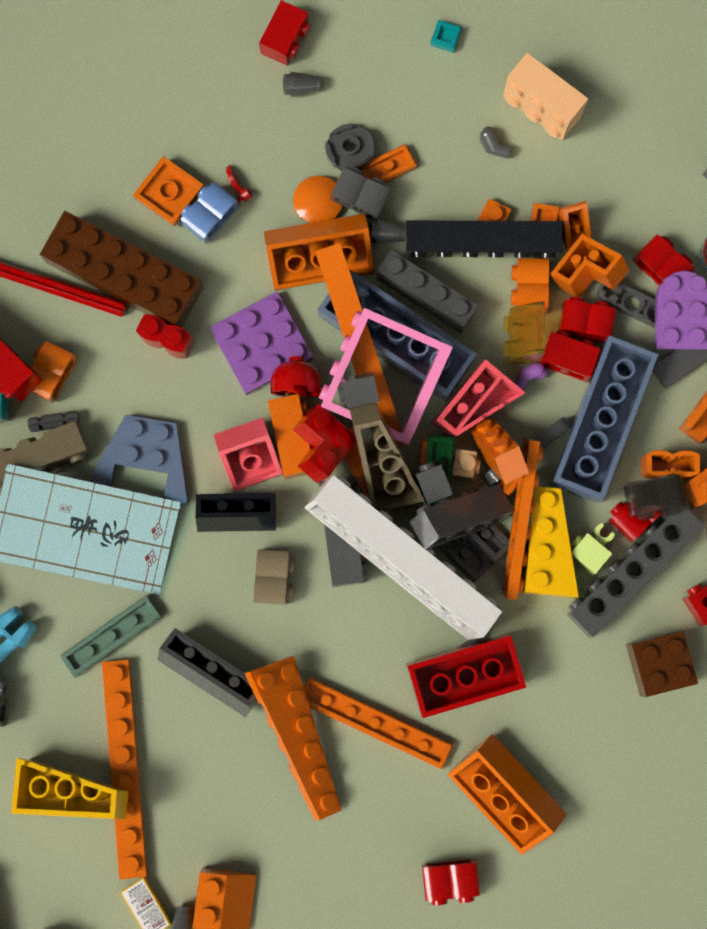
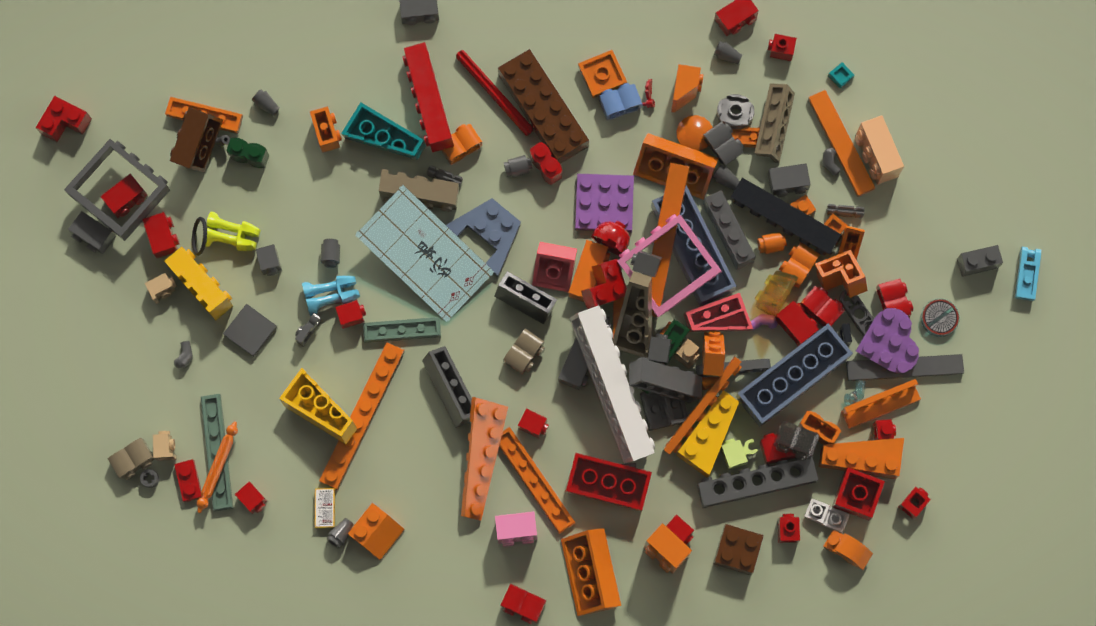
camera: 30 degrees right, 5 degrees down
(38, 655) = (350, 314): none -> red brick
(133, 359) = (517, 166): none -> dark grey brick
(276, 148) = (686, 86): none -> orange slope
(334, 657) = (533, 423): none -> red brick
(360, 41) = (782, 47): none -> red brick
(390, 798) = (516, 528): none -> bright pink brick
(403, 133) = (775, 121): none -> dark tan fence
(460, 192) = (789, 180): none -> dark grey brick
(484, 278) = (771, 243): none -> orange brick
(493, 114) = (841, 143): none -> orange tile
(545, 191) = (844, 210): none -> dark grey axle
(580, 682) = (681, 529): none -> red brick
(591, 719) = (667, 549): none -> orange brick
(632, 335) = (845, 333): none -> black tile
(686, 400) = (856, 395): none -> clear light blue arm

